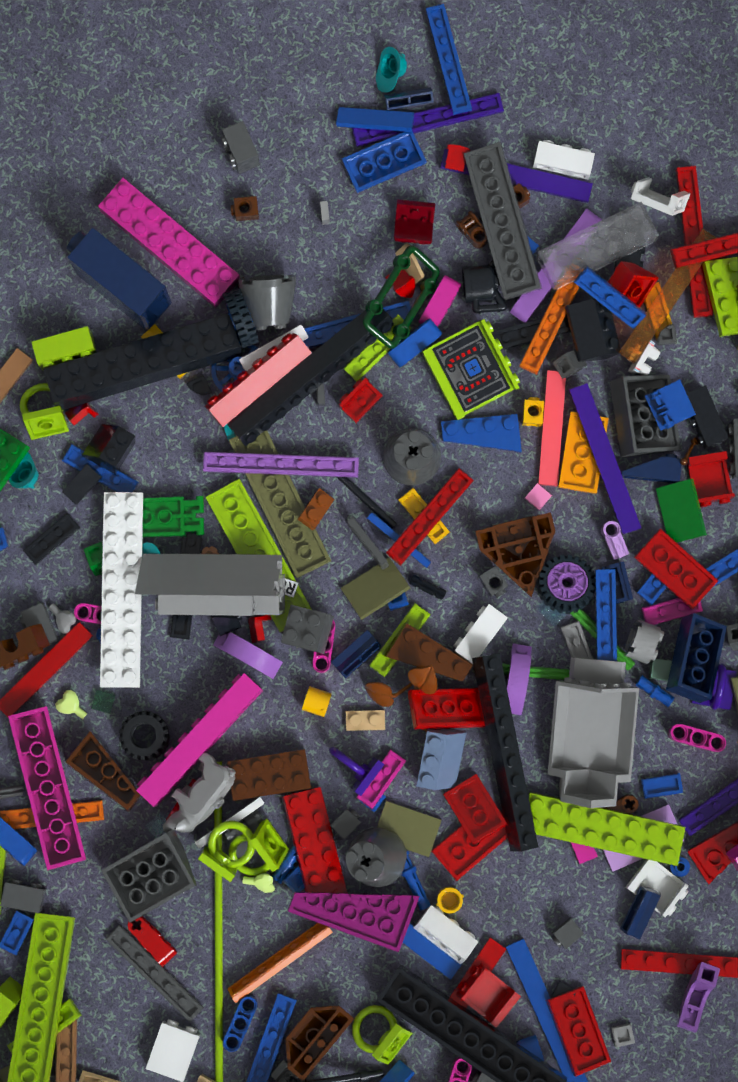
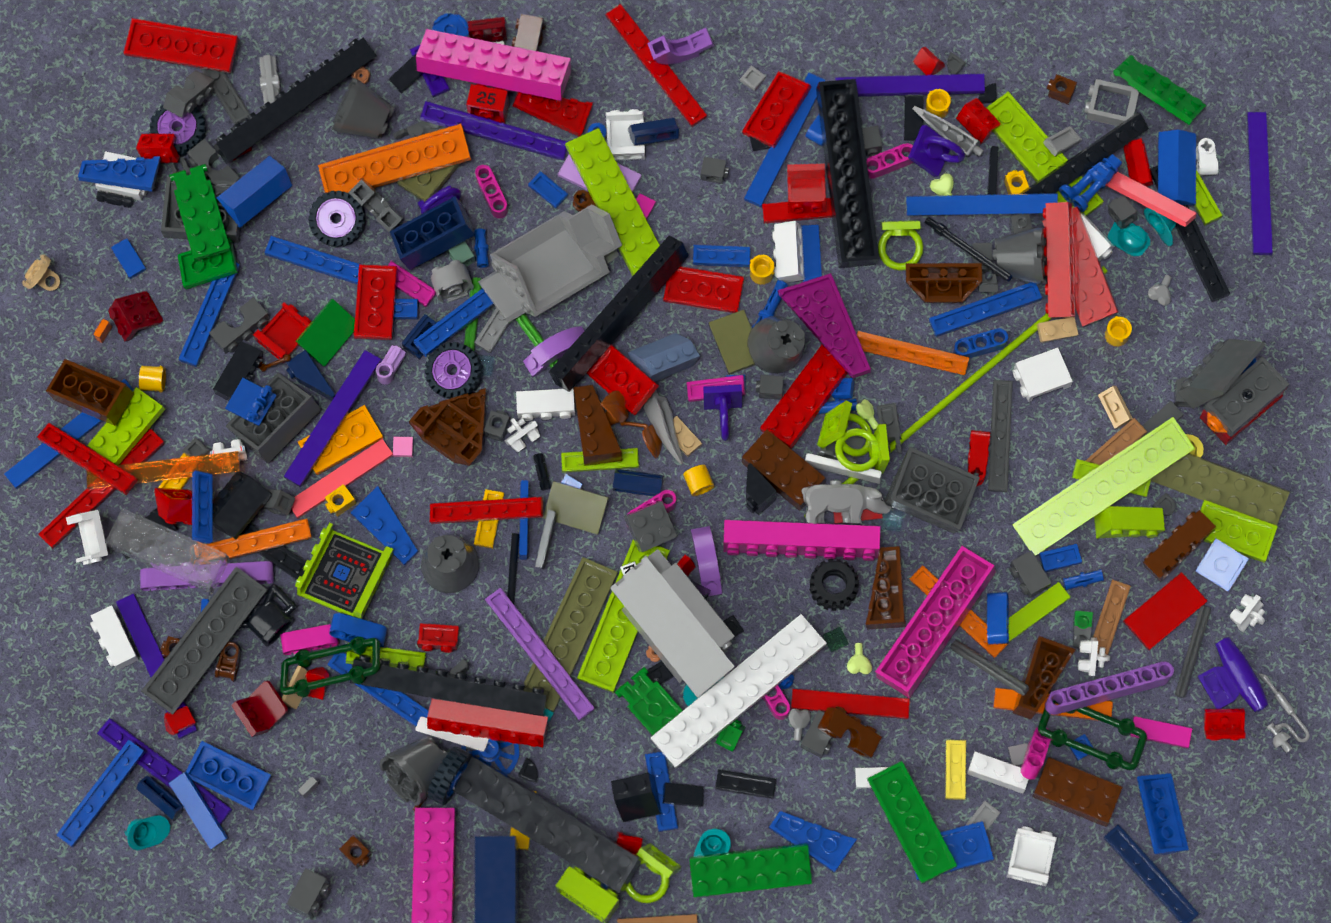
camera: 125 degrees left, 10 degrees down
(235, 891) = (888, 415): none -> dark grey hinge
(267, 738) = (758, 491): none -> black slope
(315, 509) = (552, 600): dark orange plate -> none
(390, 714) = (661, 417): none -> light grey piece
(474, 597) = (515, 439): none -> white hips
(475, 809) = (679, 303): red plate -> none
(489, 878) = (721, 256): none -> blue plate

